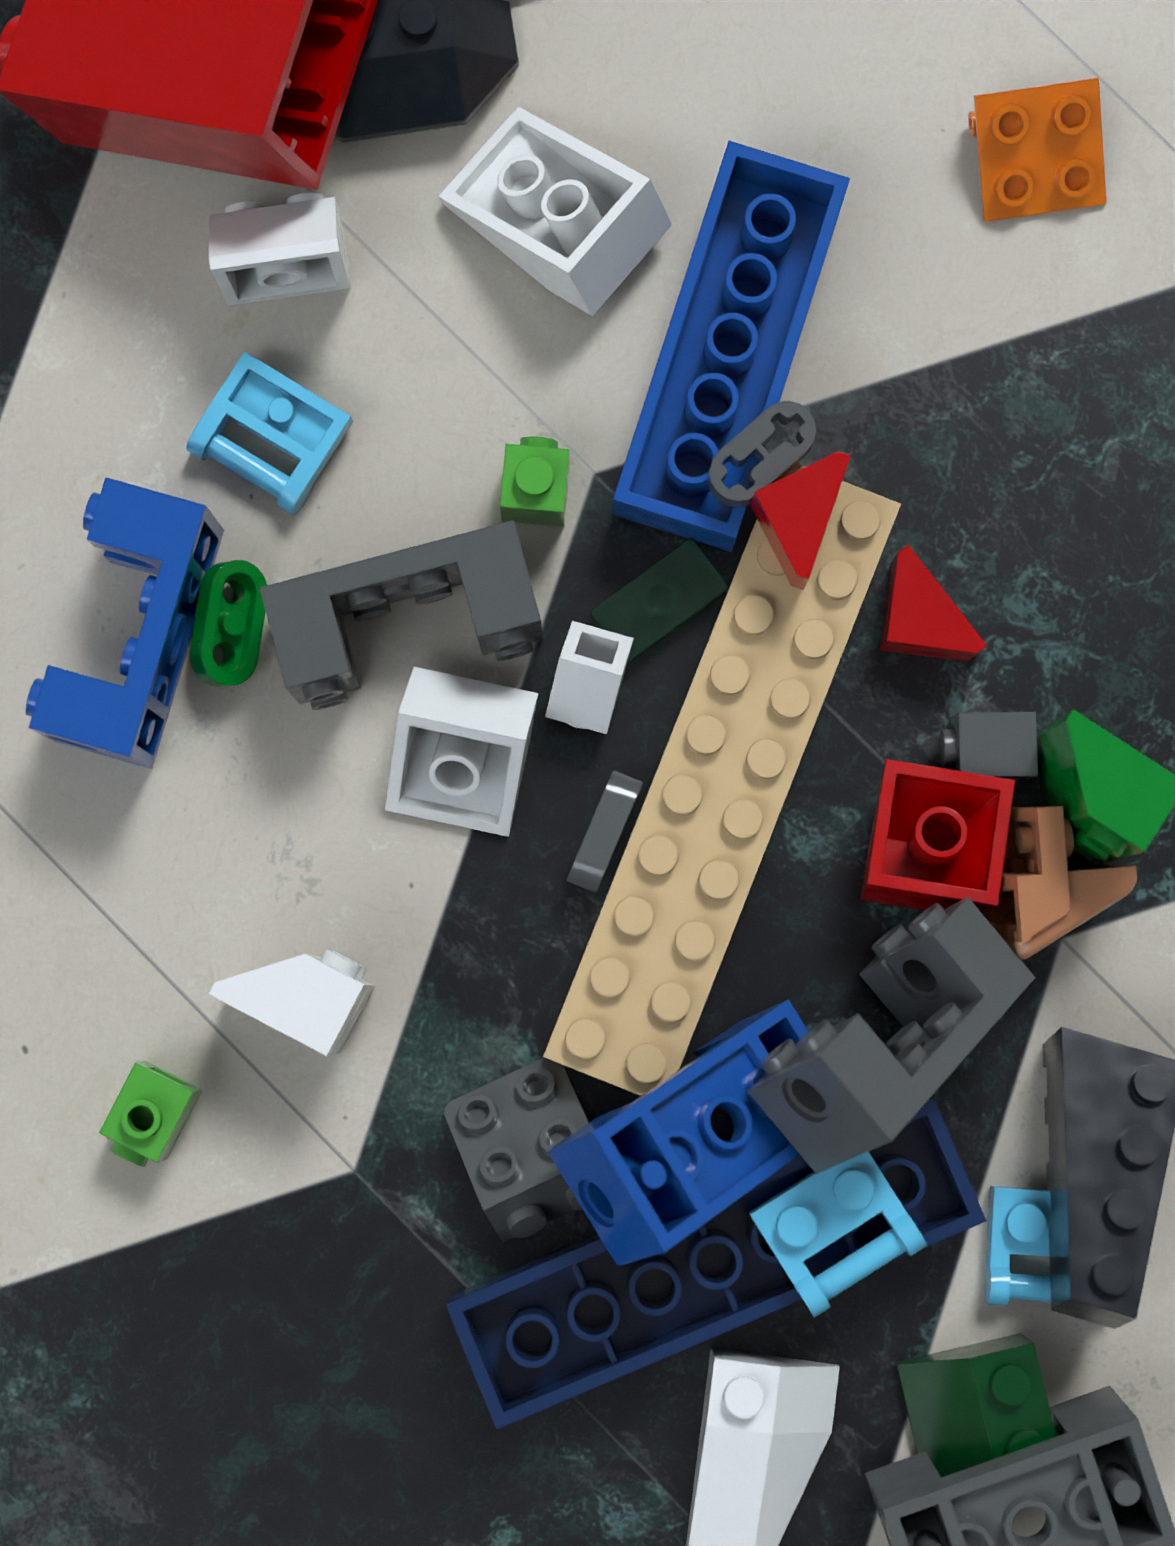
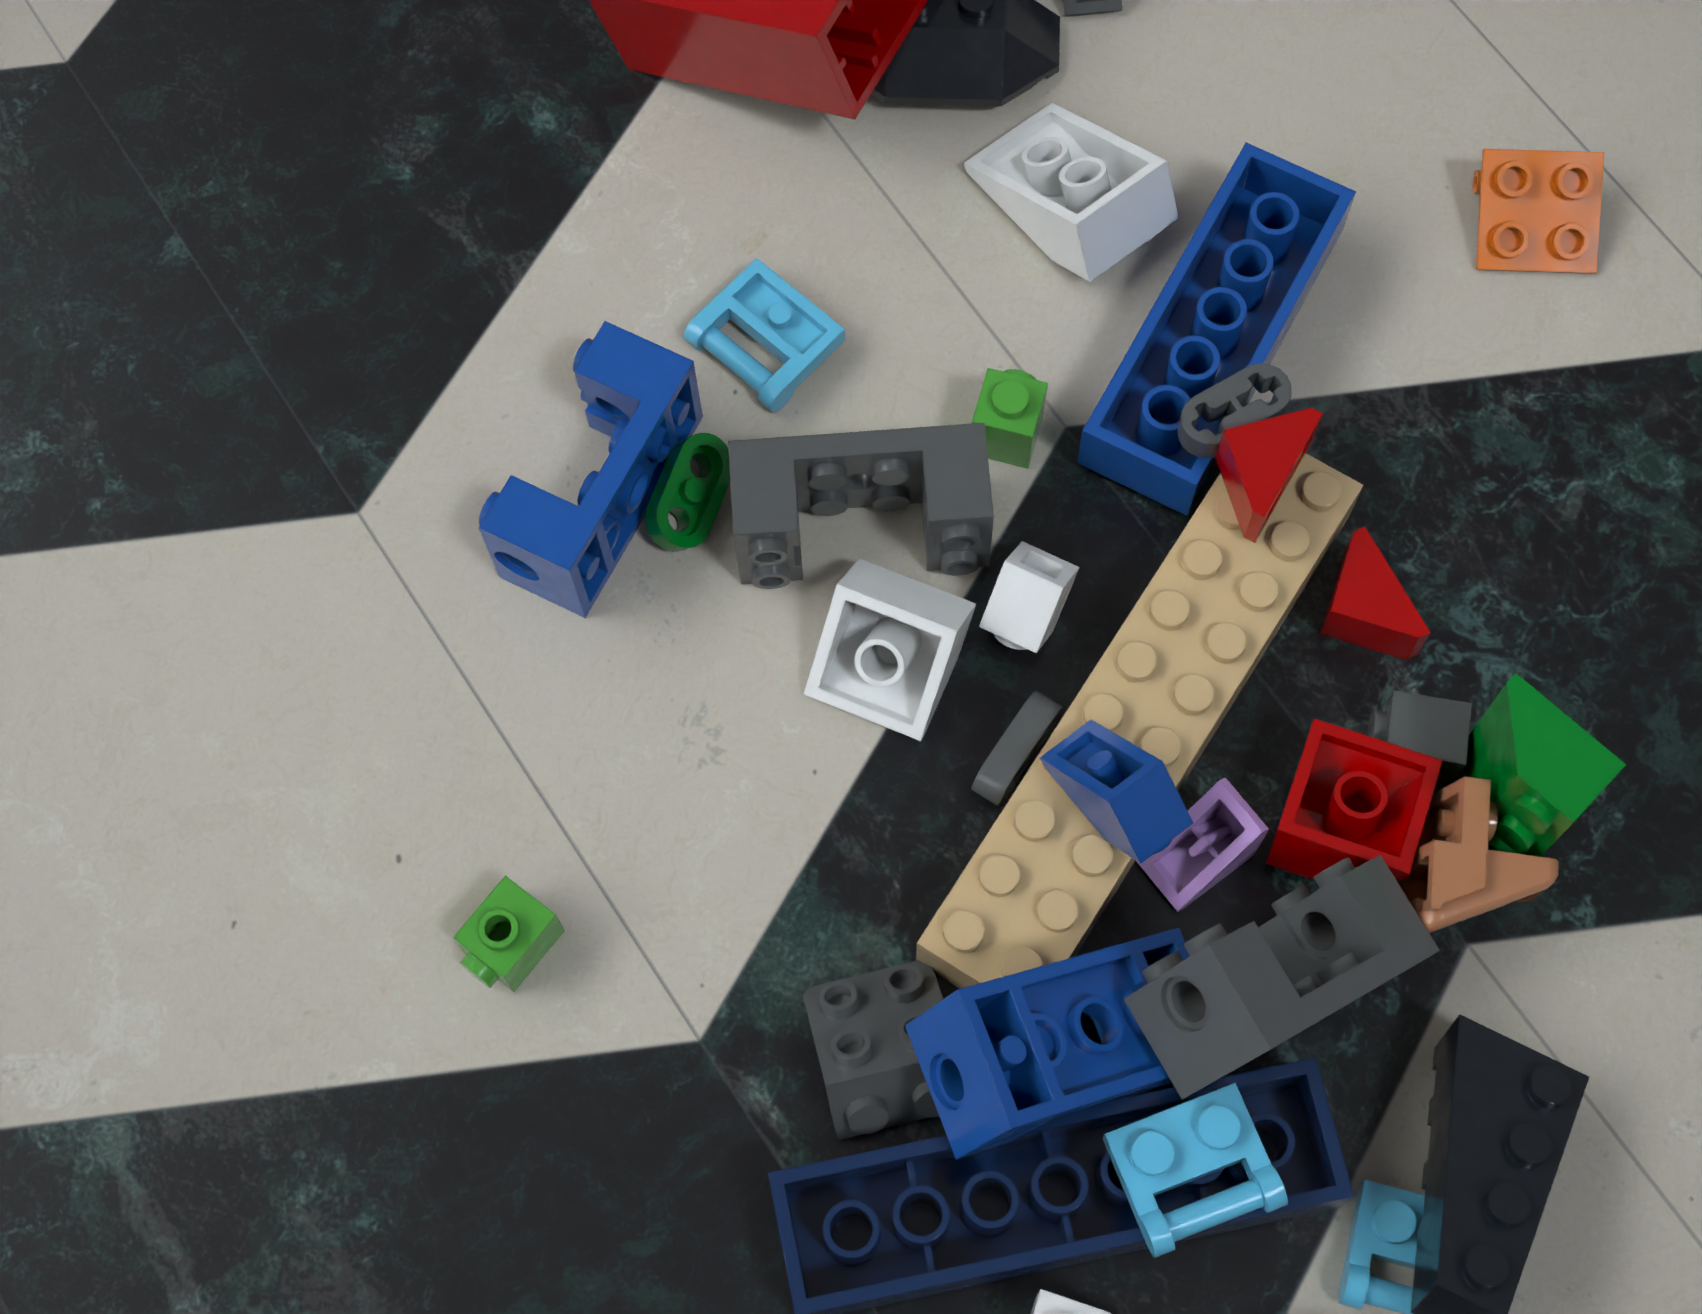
camera: 15 degrees right, 15 degrees down
(278, 249) = (807, 180): white slope -> none
(302, 998) = (684, 840): white slope -> none
(661, 598) = (1113, 545): clear green plate -> none
(708, 879) = (1119, 790): none -> blue slope
(797, 900) = (1216, 844): none -> lavender slope

